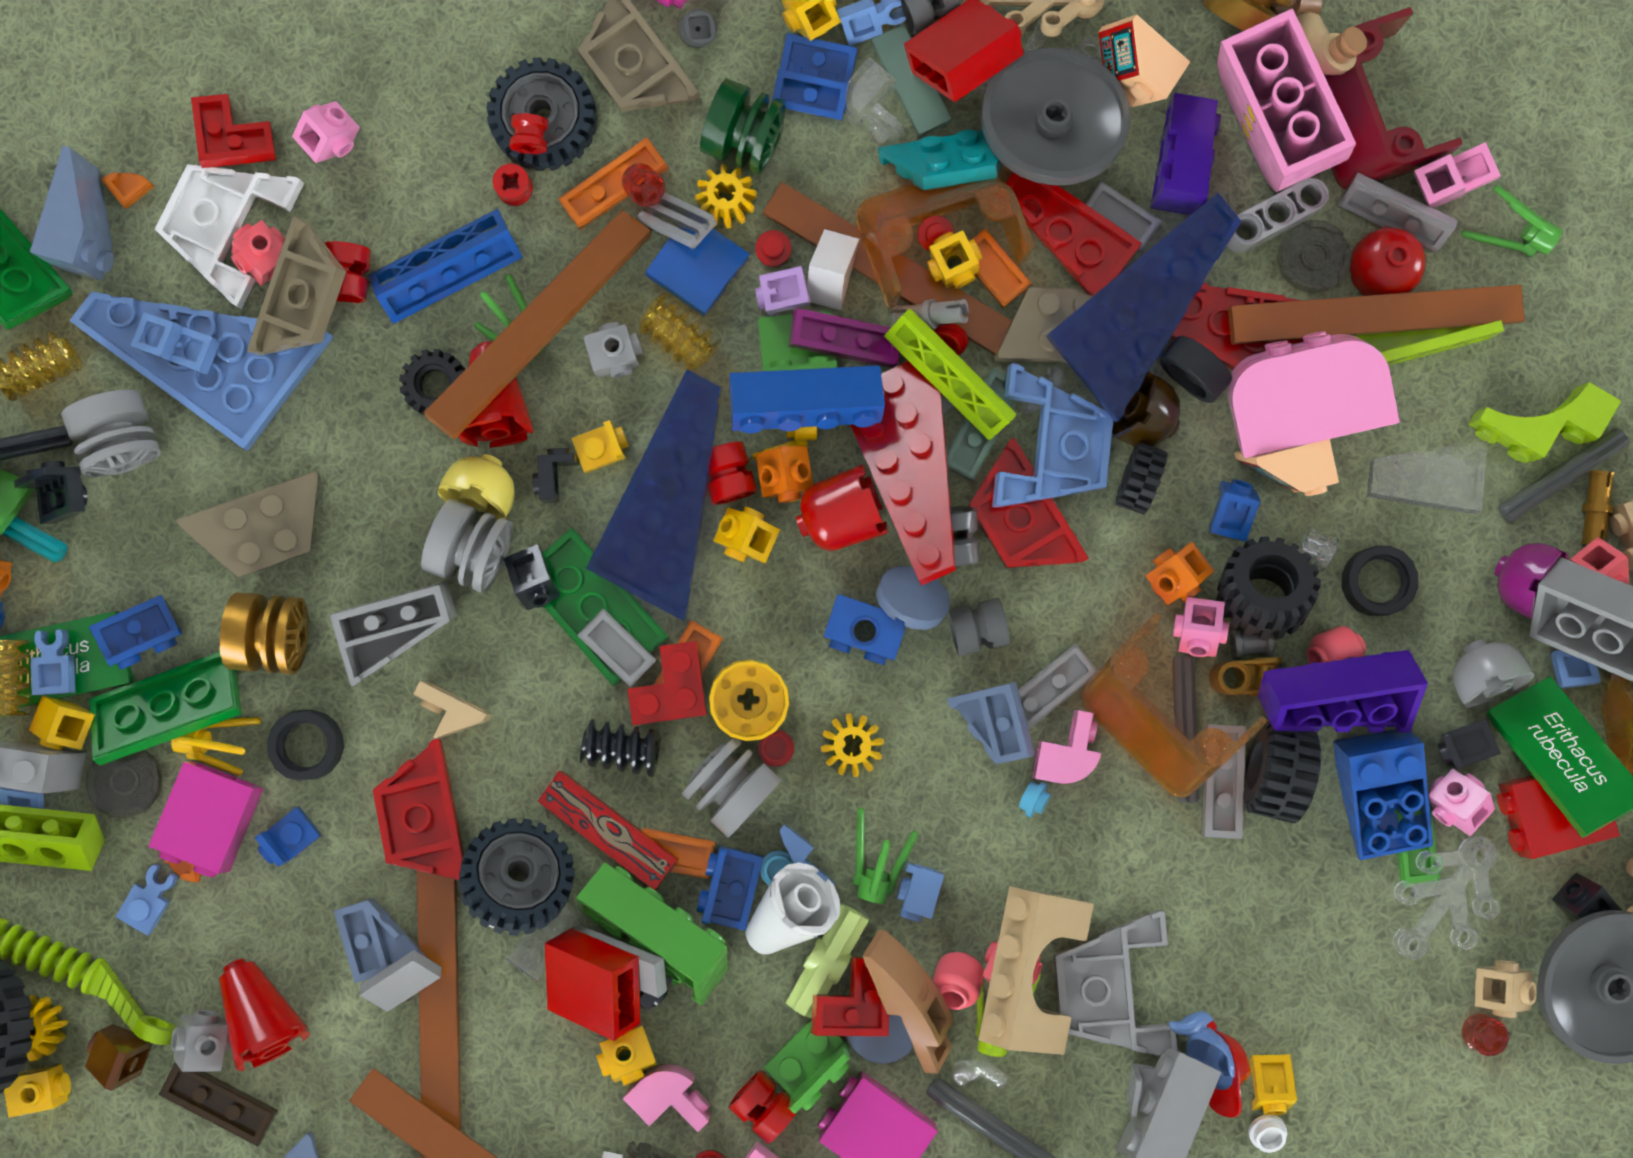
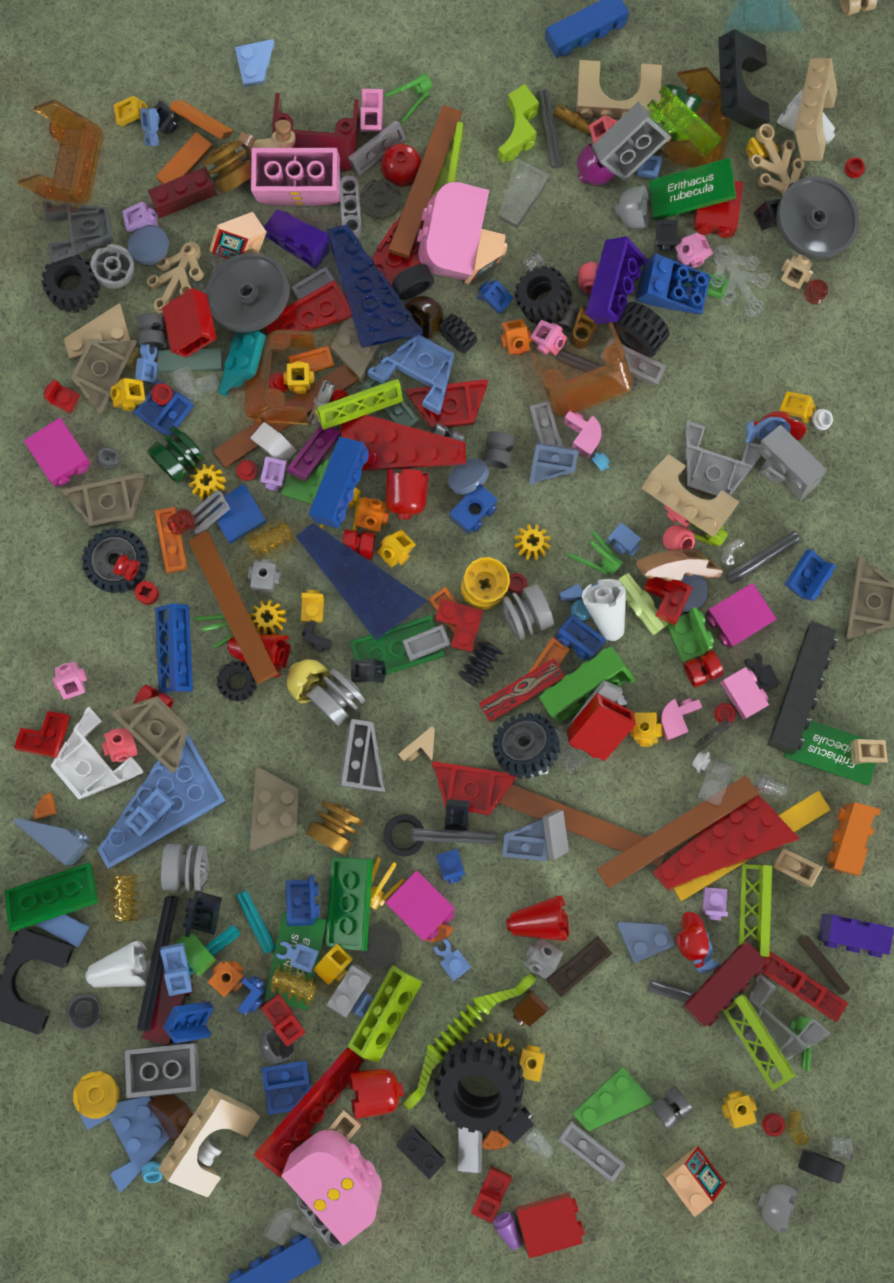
camera: 75 degrees left, 5 degrees down
(84, 577) = (255, 922): none -> teal axle
(331, 822) = (457, 836): none -> dark grey axle
(361, 814) = (456, 815): none -> black plate
(540, 380) = (275, 614): none -> yellow gear
(834, 61) = (161, 394): none -> red plate
(1406, 570) = (563, 256): black tyre -> none

